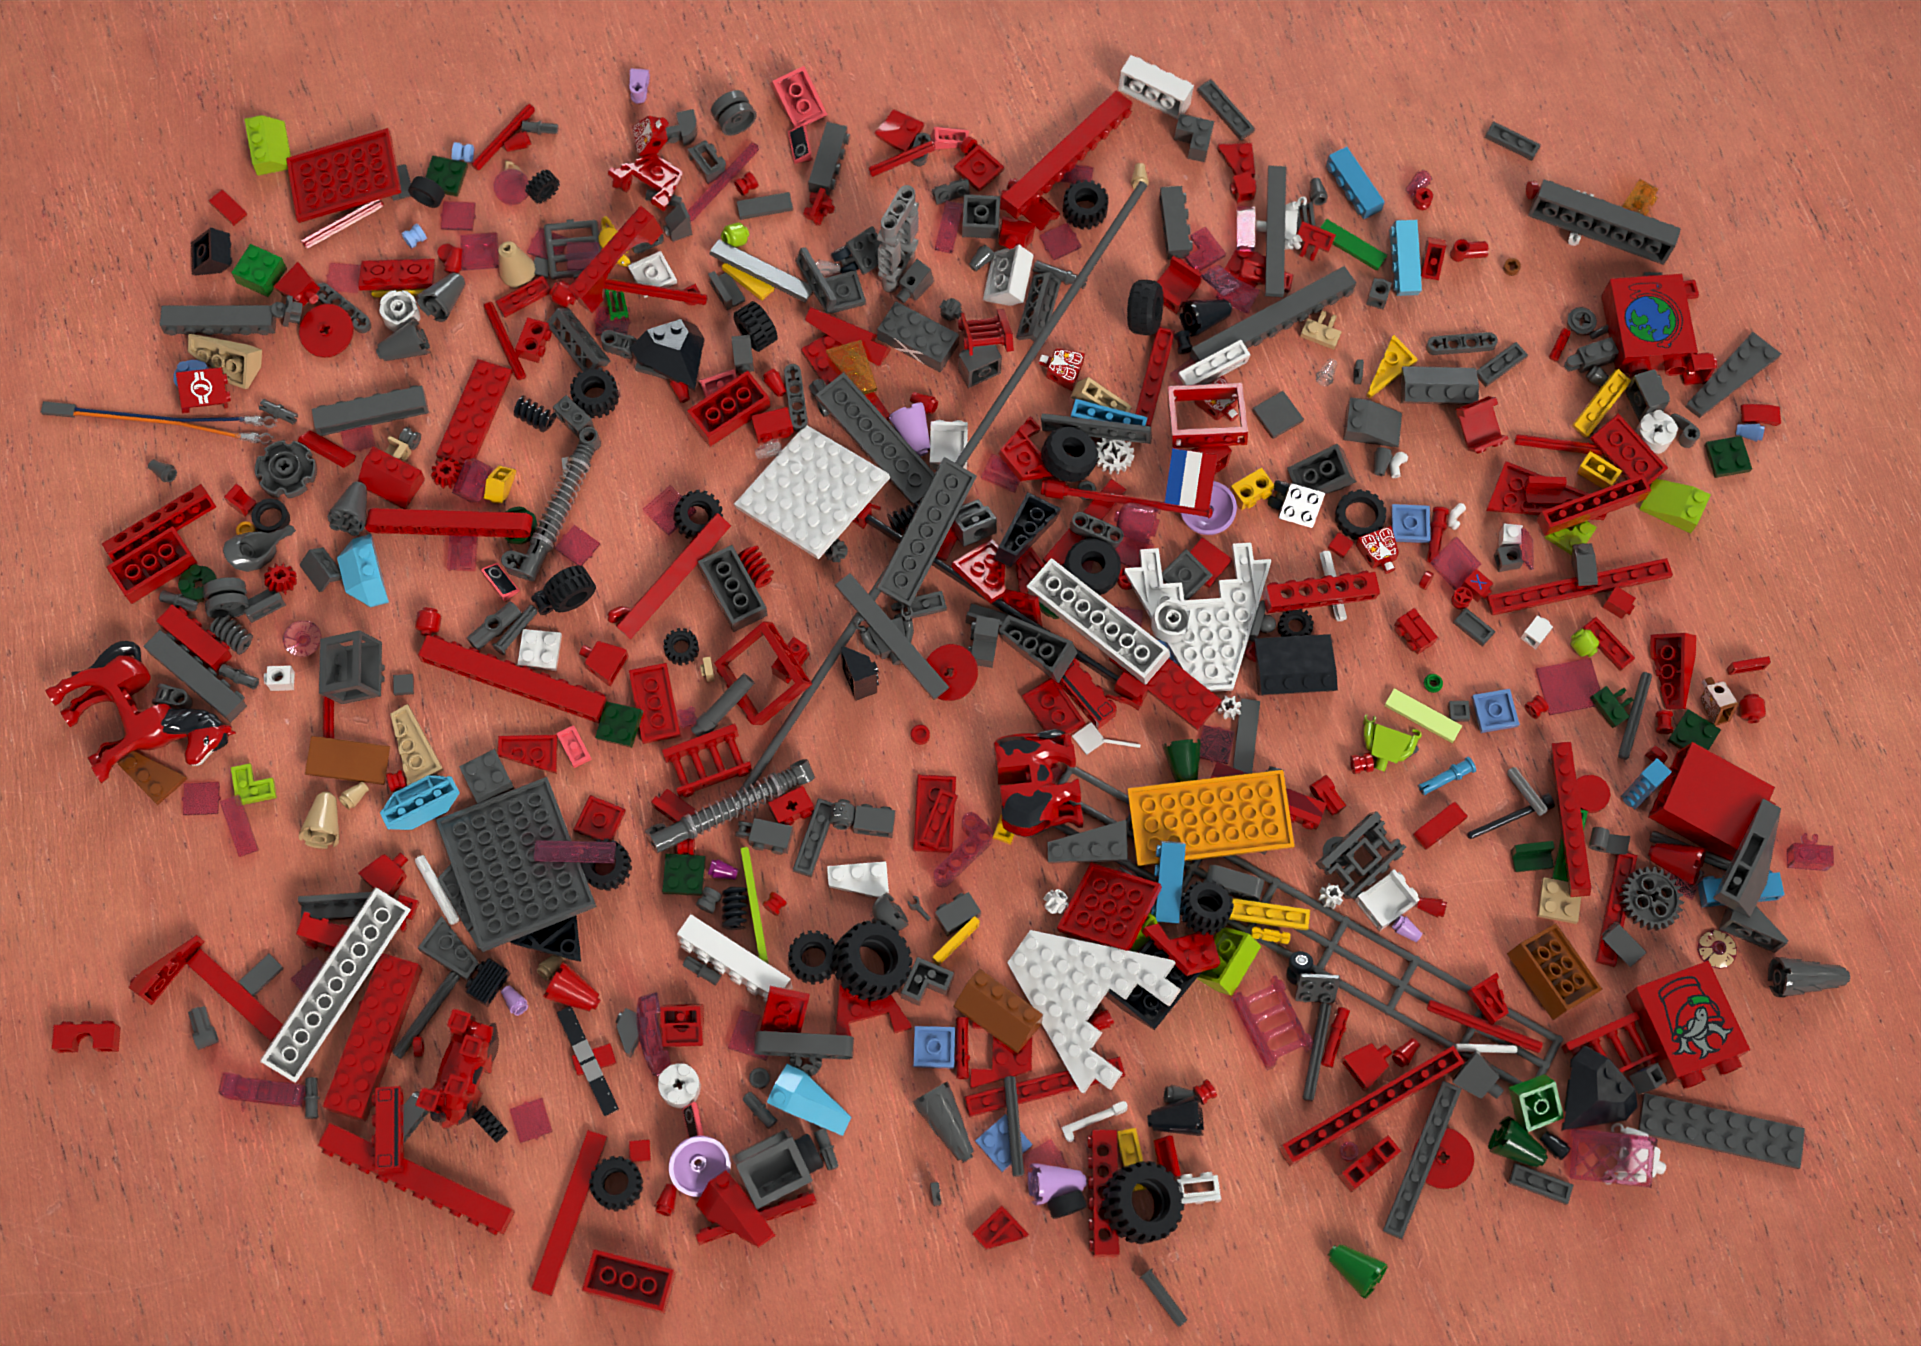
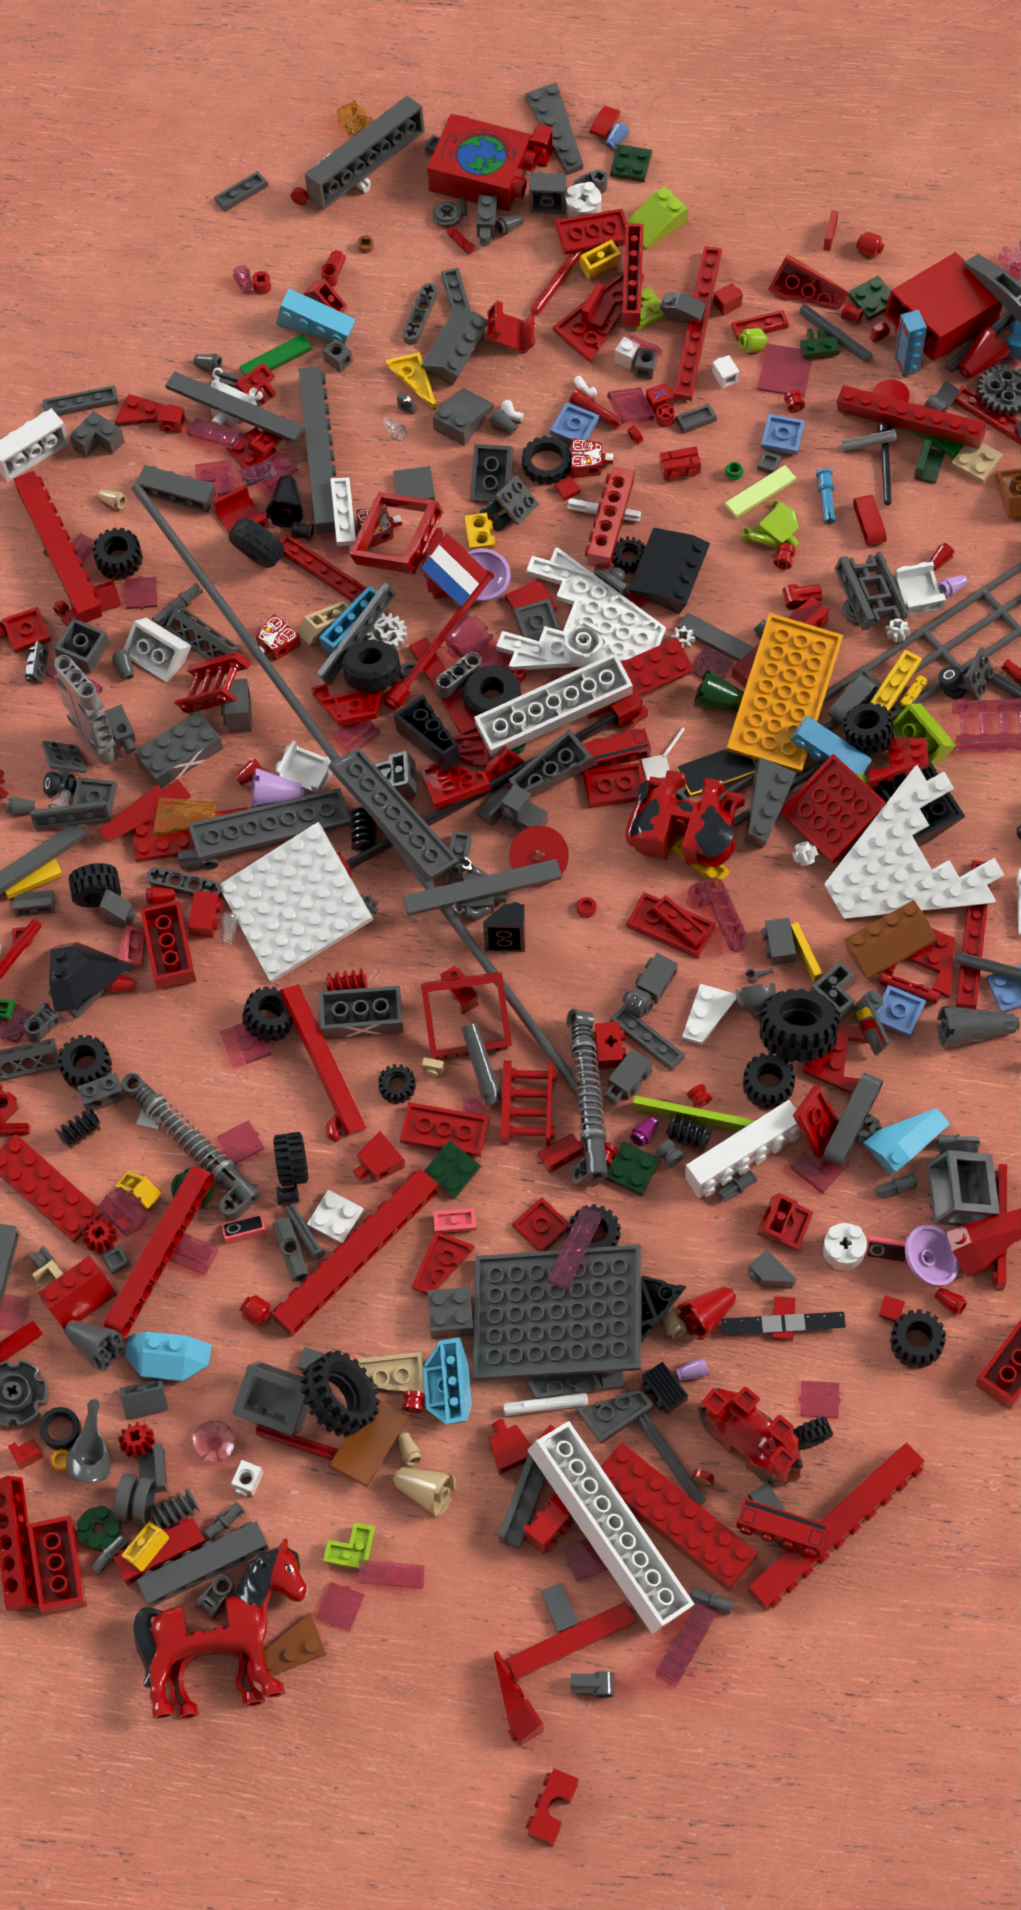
camera: 60 degrees left, 5 degrees down
(188, 623) = (145, 1546): none -> yellow slope
(380, 731) = (351, 1382): none -> black tyre
(433, 495) = (116, 1259): none -> dark grey tile
(569, 1214) = (927, 1395): red tile -> none
(650, 1035) = (806, 1258): clear pink slope -> none
(759, 1078) = (864, 1176): dark grey tile -> none
(809, 238) = (19, 806): none -> dark grey cone
(920, 1014) = (865, 1011): none -> dark grey door
(950, 309) = (165, 710): dark grey gear -> none
(1015, 232) = (116, 623): red torso -> none
(1102, 1020) = (933, 858): red cone -> none
(1105, 788) = (718, 766): none -> black sticker
(1321, 333) = (351, 419): tan hinge -> none
(1355, 183) = (216, 328): dark azure brick -> none
(1601, 403) = (535, 231): yellow plate -> none
(1718, 701) = (853, 264): dark orange torso -> none

